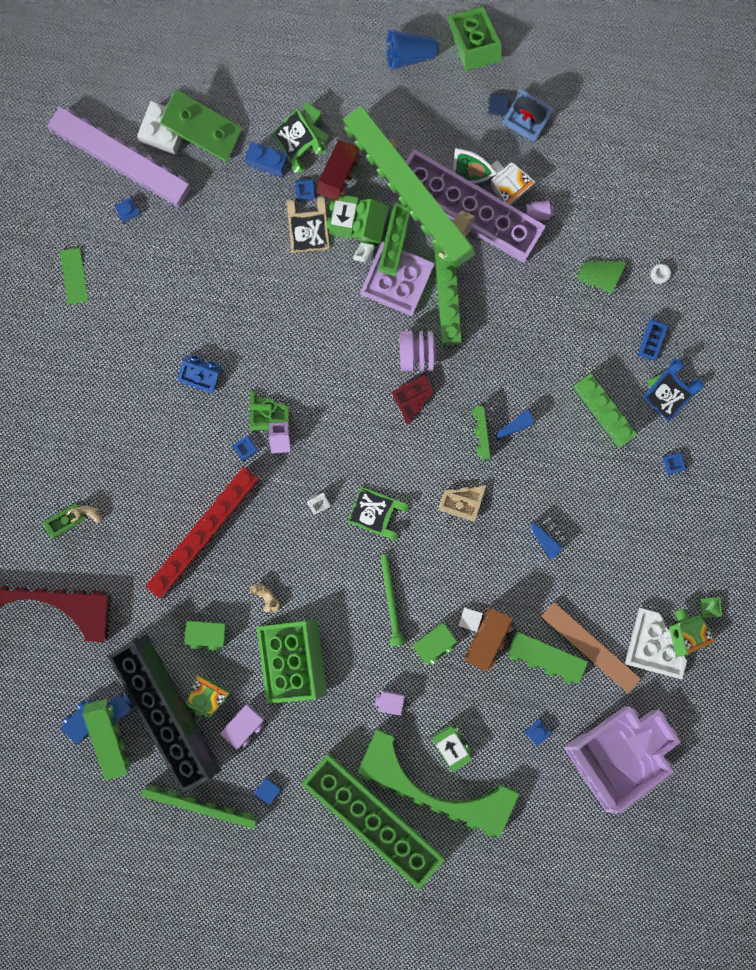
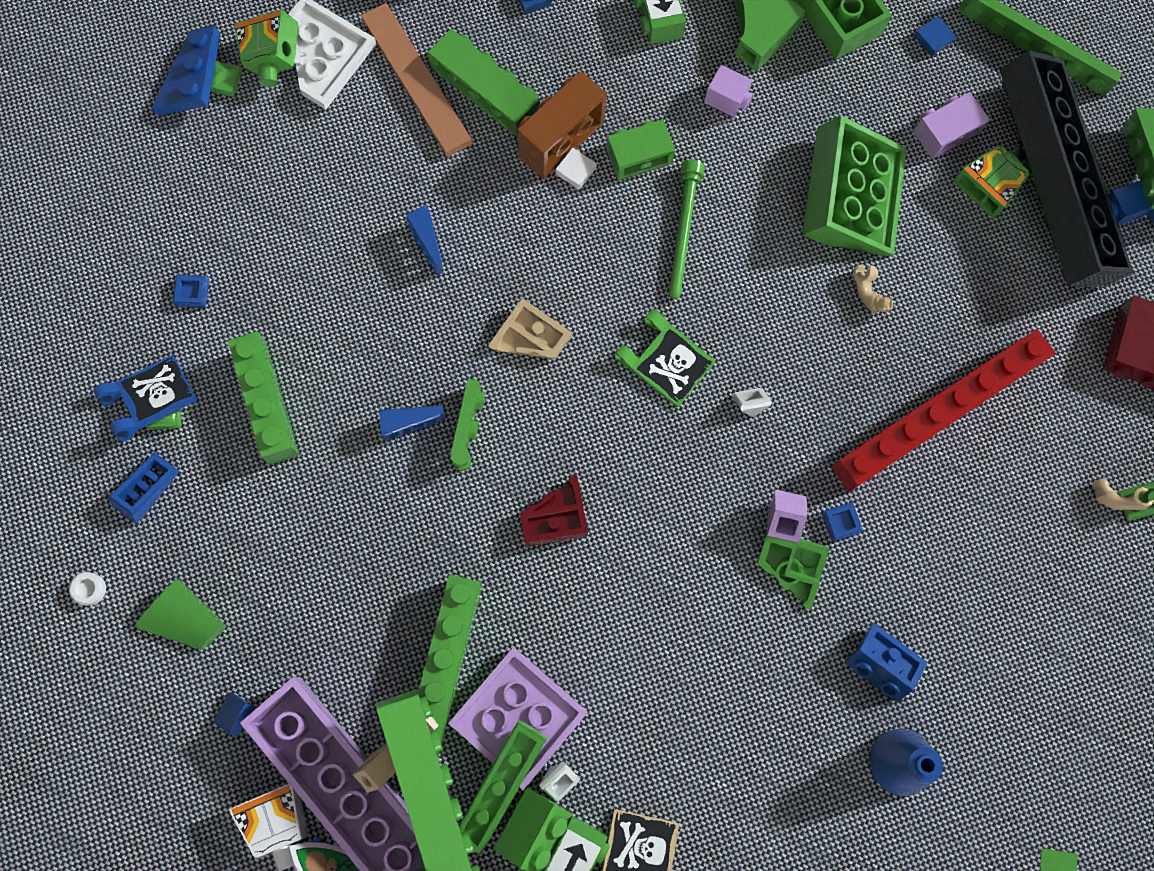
camera: 170 degrees left, 10 degrees down
(176, 322) = (904, 762): none -> blue cone
(205, 634) = (974, 265): bright green brick -> none
(417, 351) = (526, 582): lavender wheel -> none
(540, 210) = (241, 758): lavender brick -> none
(552, 232) = (232, 713): none -> blue tile
(730, 602) = (191, 73): none -> blue wing

